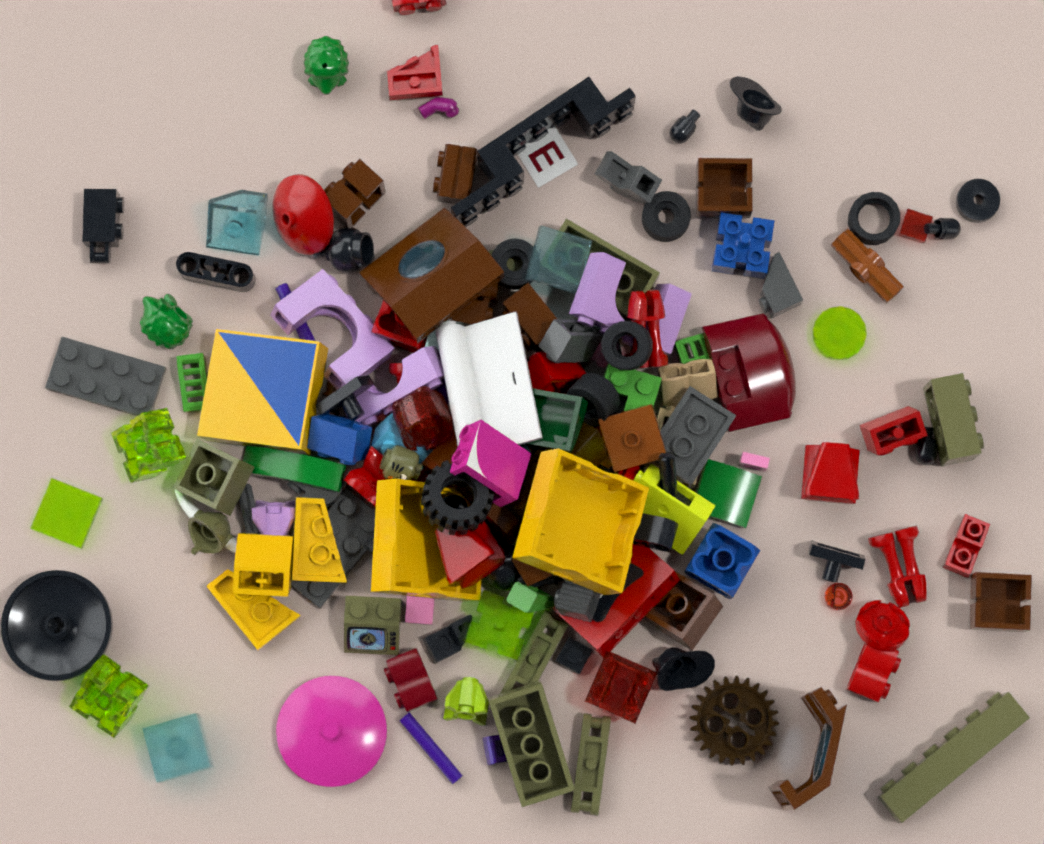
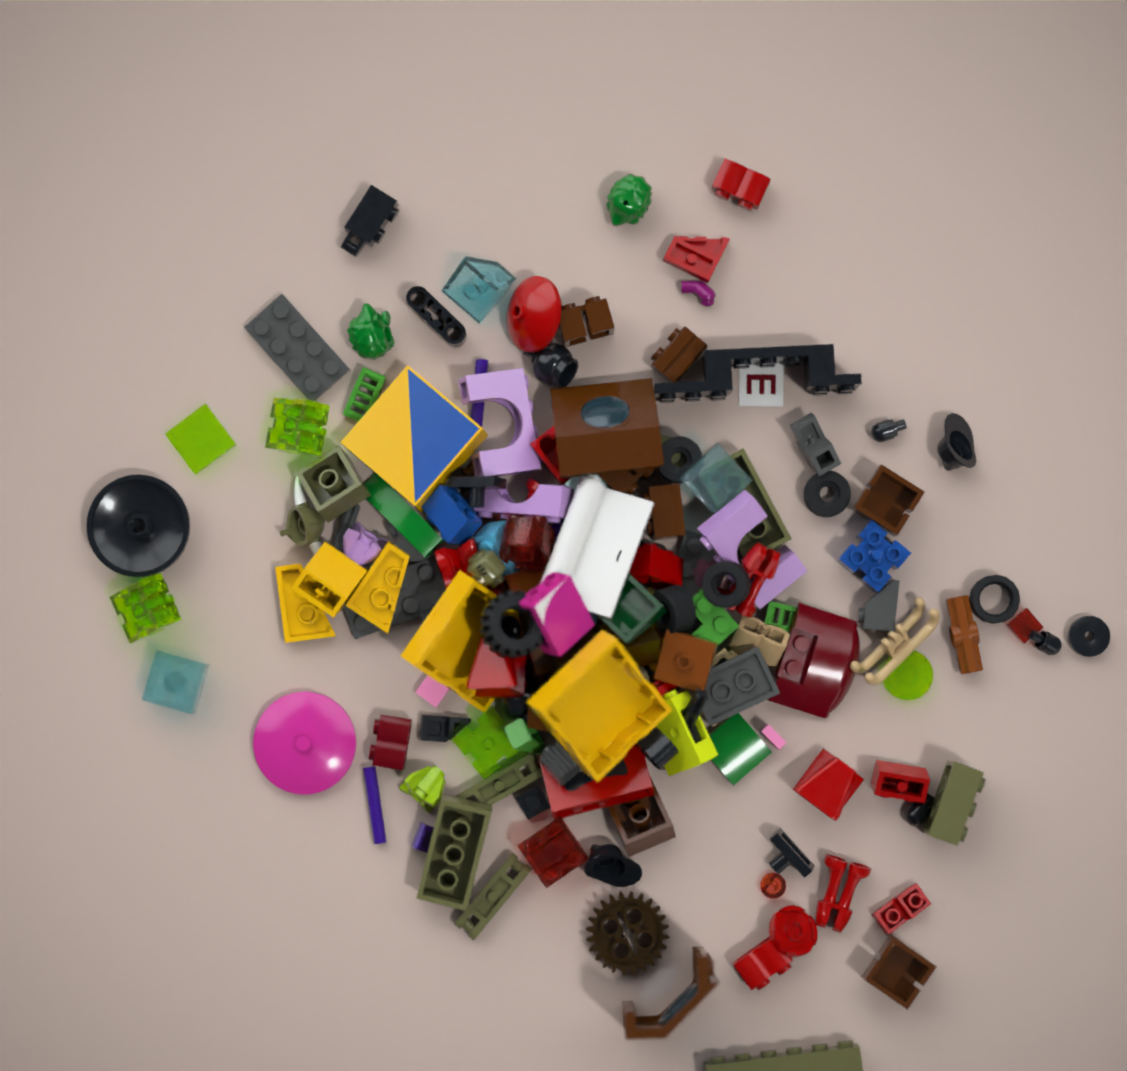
camera: 30 degrees right, 5 degrees up
(372, 625) = (387, 679): olive slope -> none
(570, 341) = (683, 551): dark grey brick -> none
(722, 561) = (697, 801): blue piece -> none
(813, 310) = (897, 644): none -> tan piece

